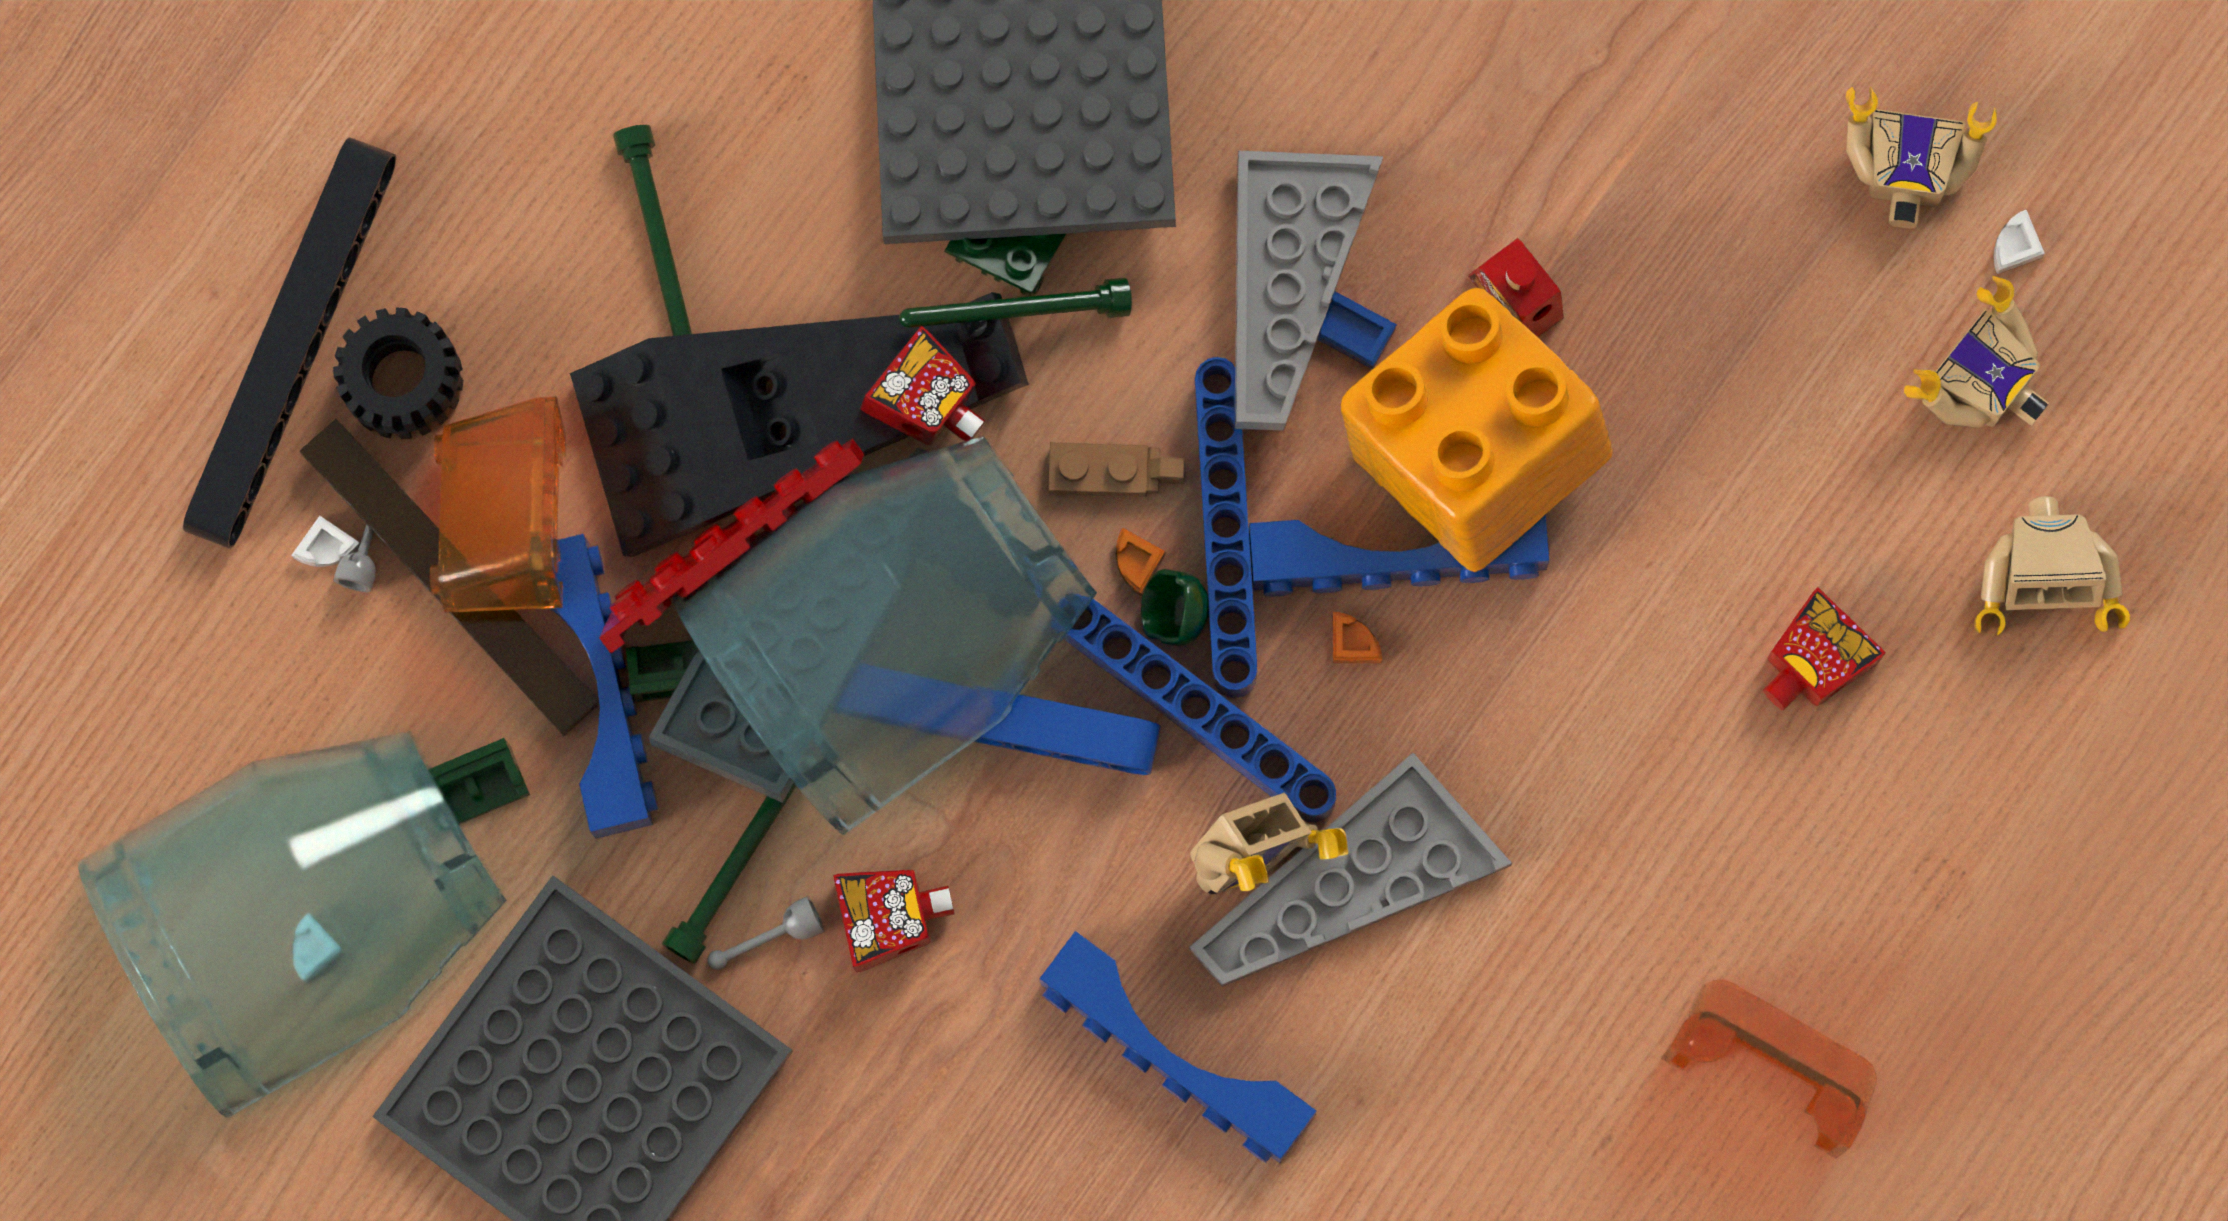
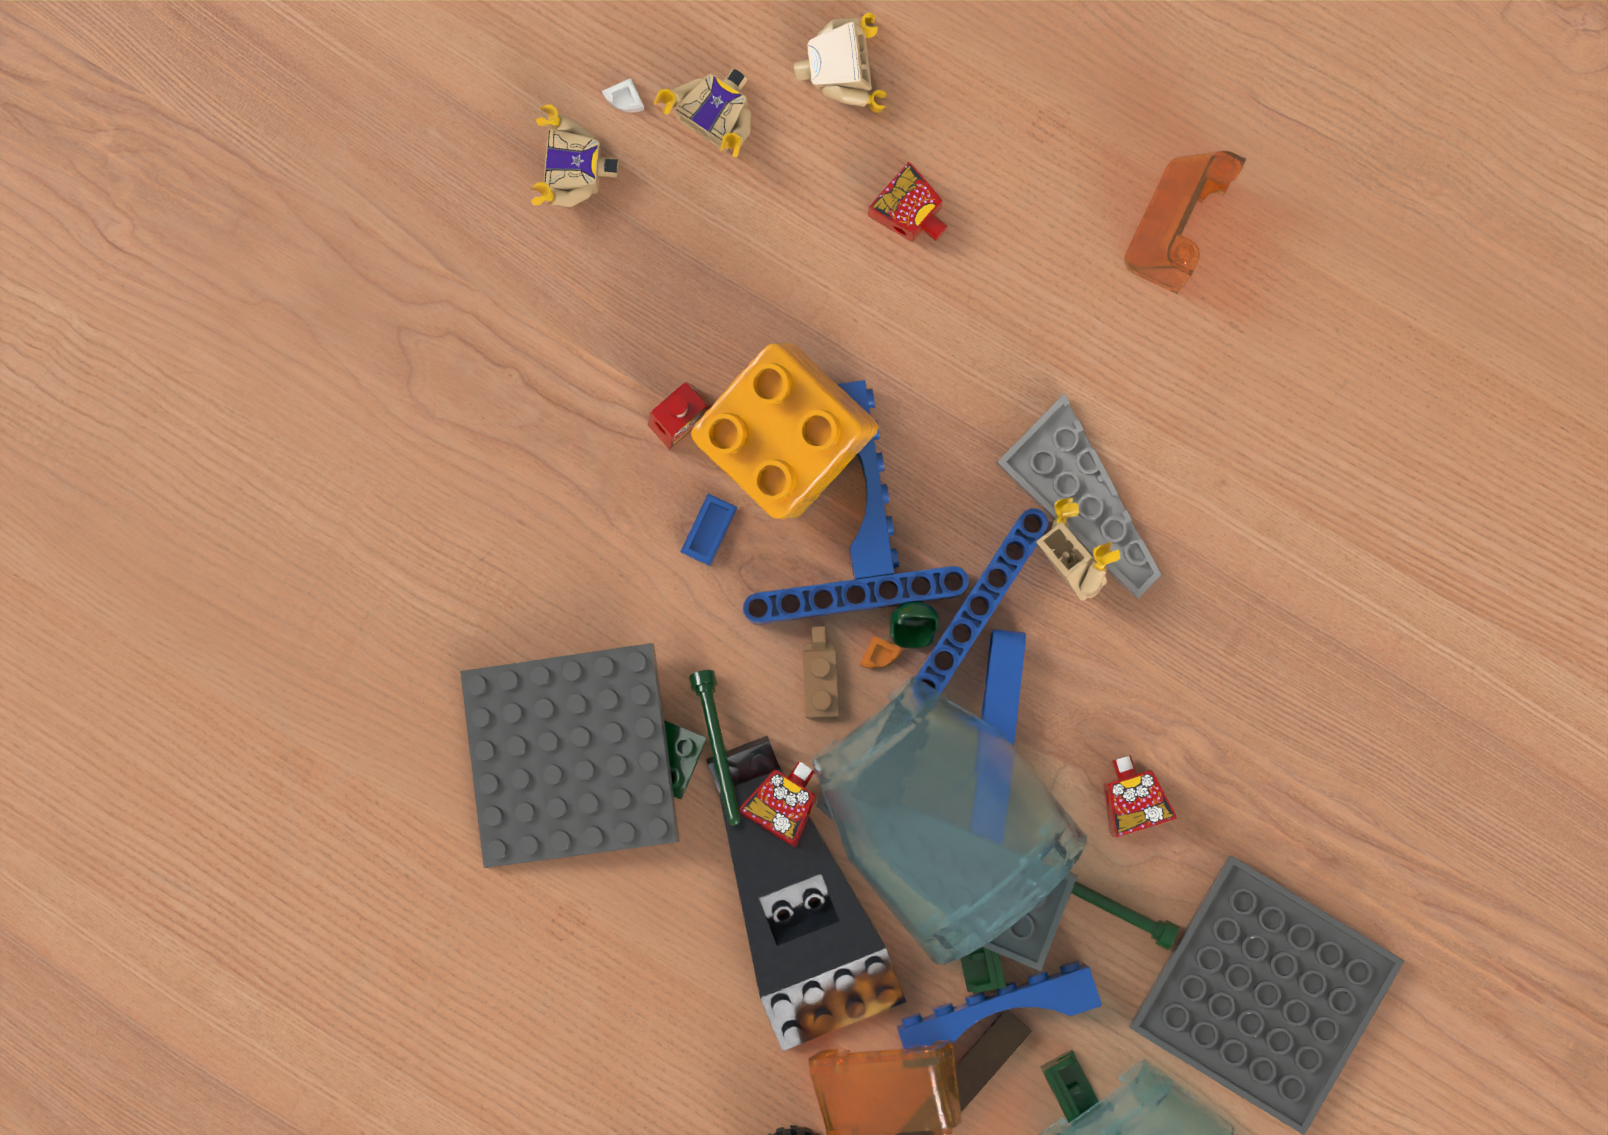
camera: 100 degrees left, 5 degrees up
(635, 146) = (620, 1020): dark green piece -> none
(720, 547) = (905, 934): red wing -> none
(799, 921) = (1143, 857): light grey hinge -> none
(1259, 1110) = (1239, 547): blue arch -> none
(1291, 247) = (664, 565): light grey wing -> none
(1353, 641) = (923, 507): orange tile -> none

